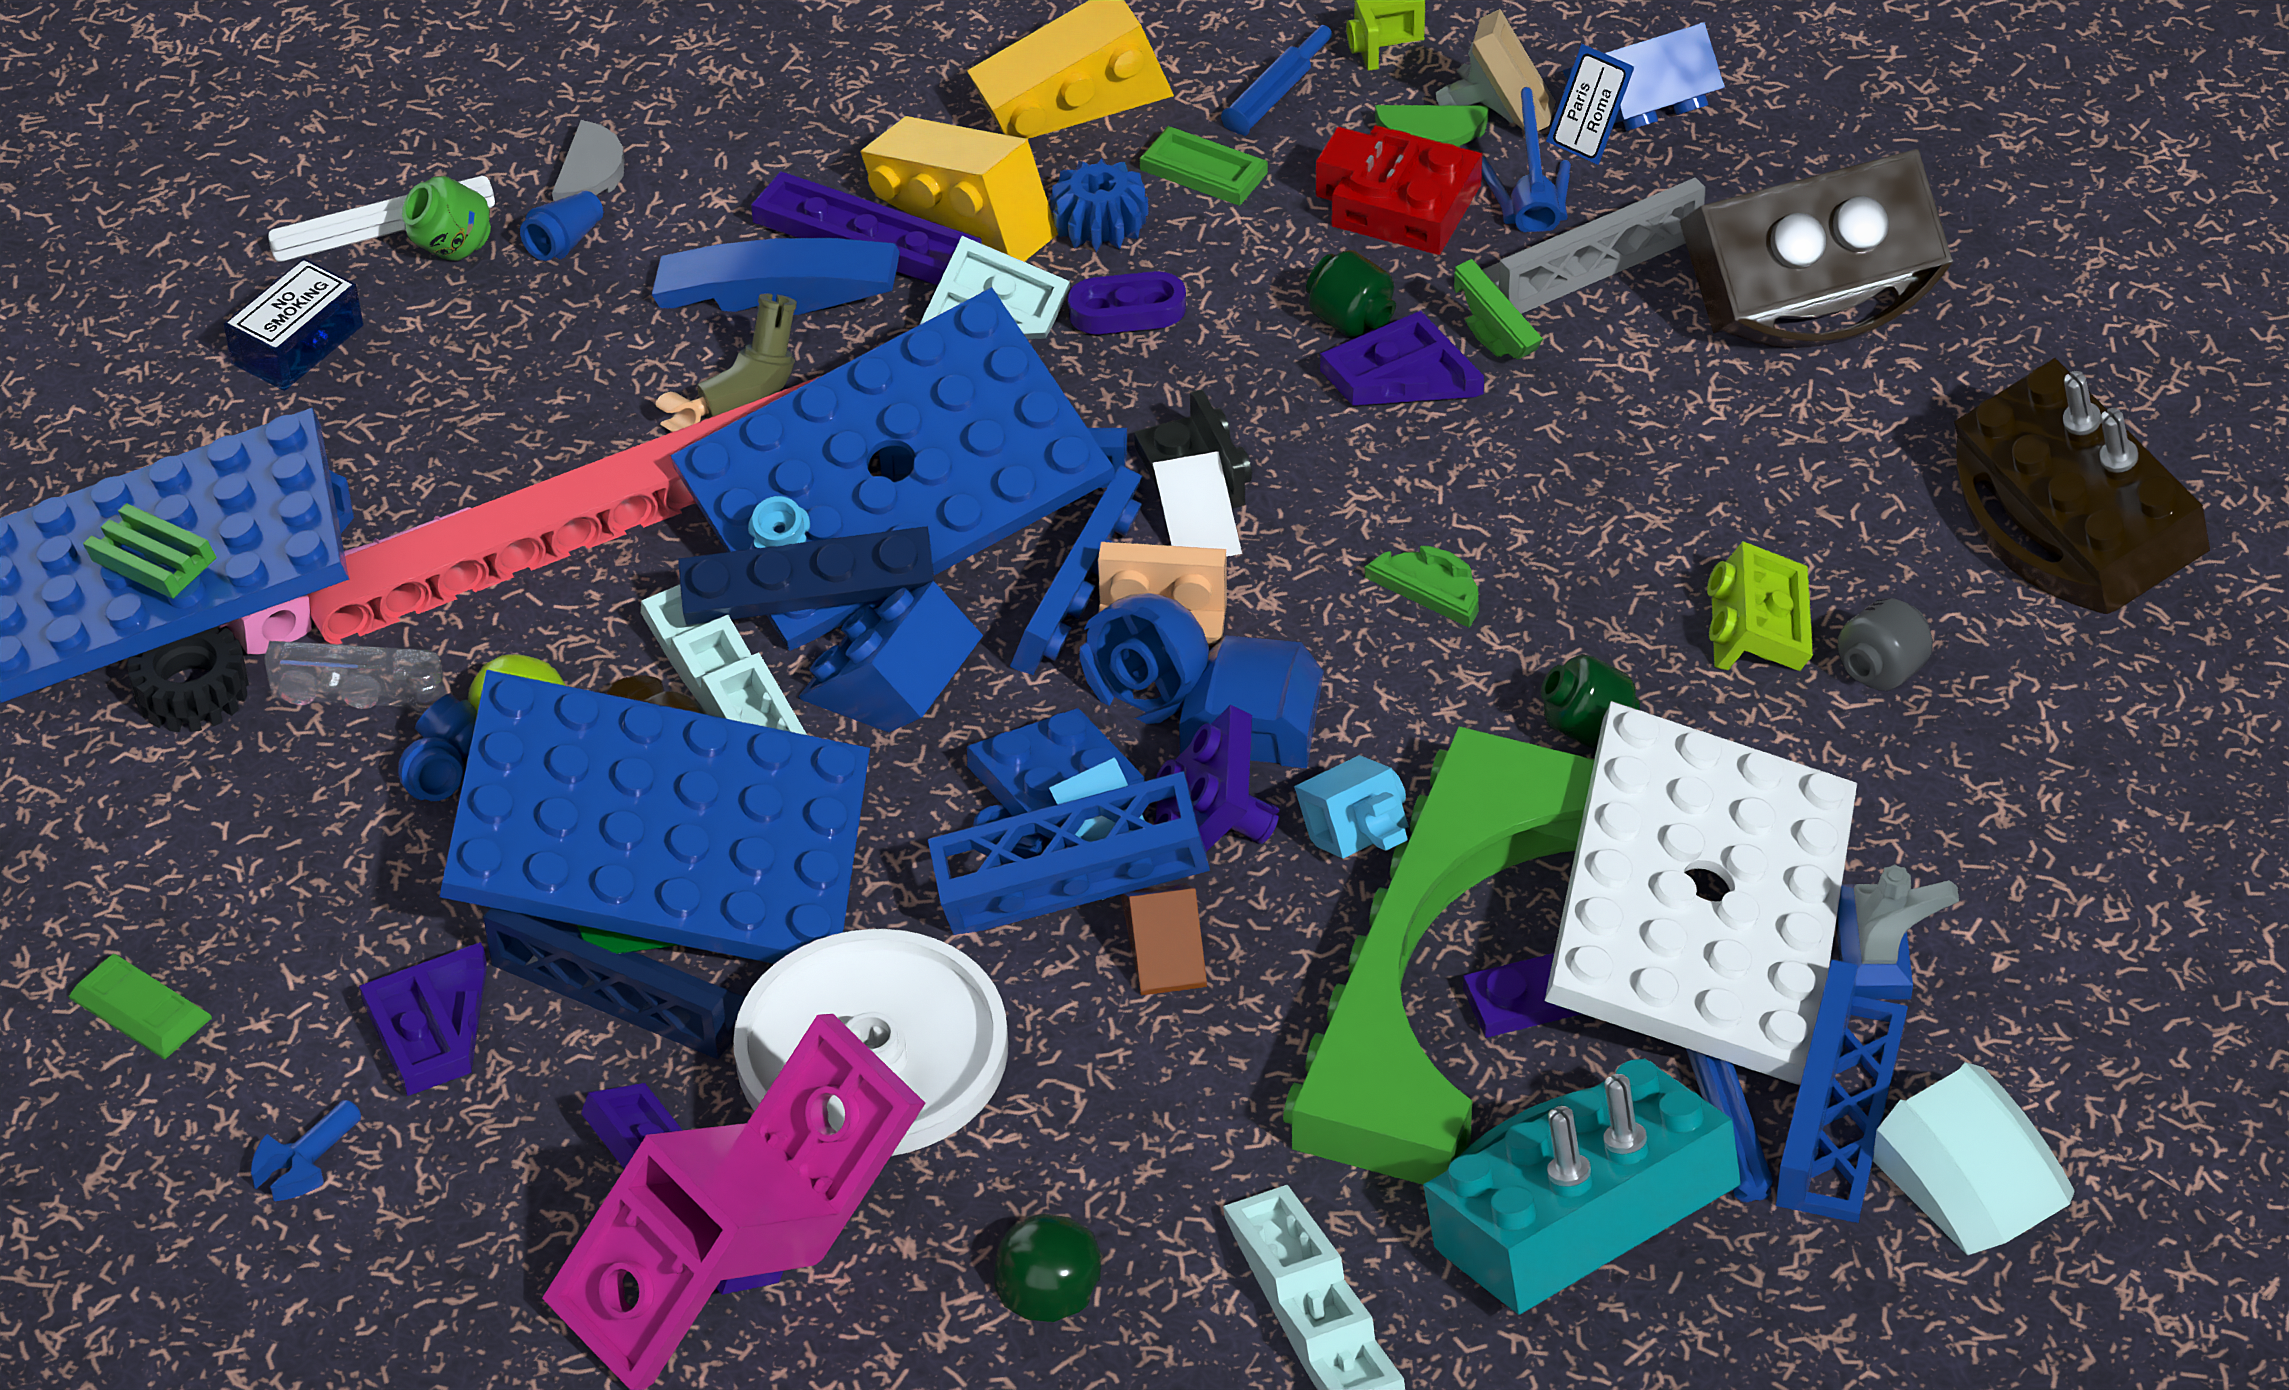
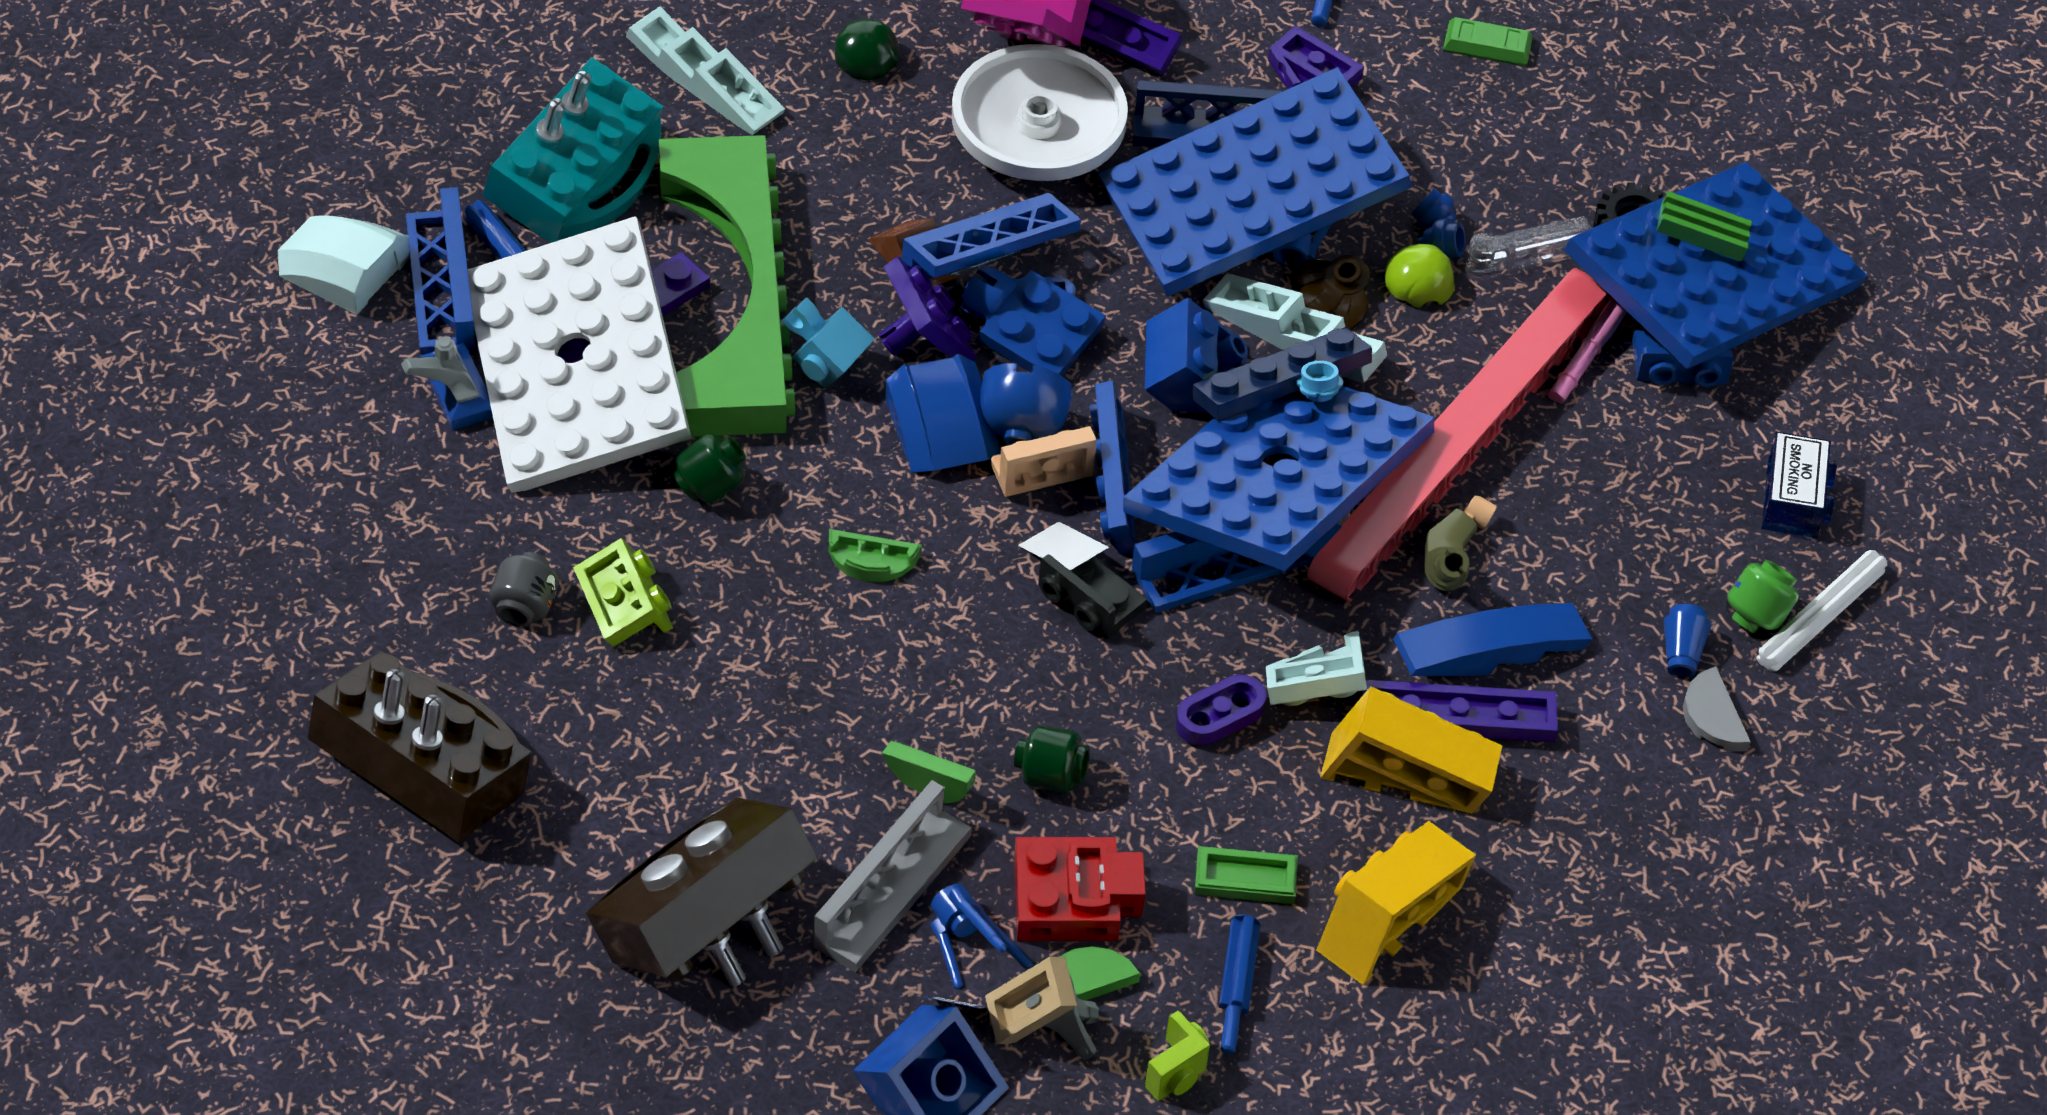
camera: 150 degrees right, 5 degrees up
(1099, 204) = (1297, 787): blue gear -> none
(1401, 364) = (984, 722): dark purple wing -> none

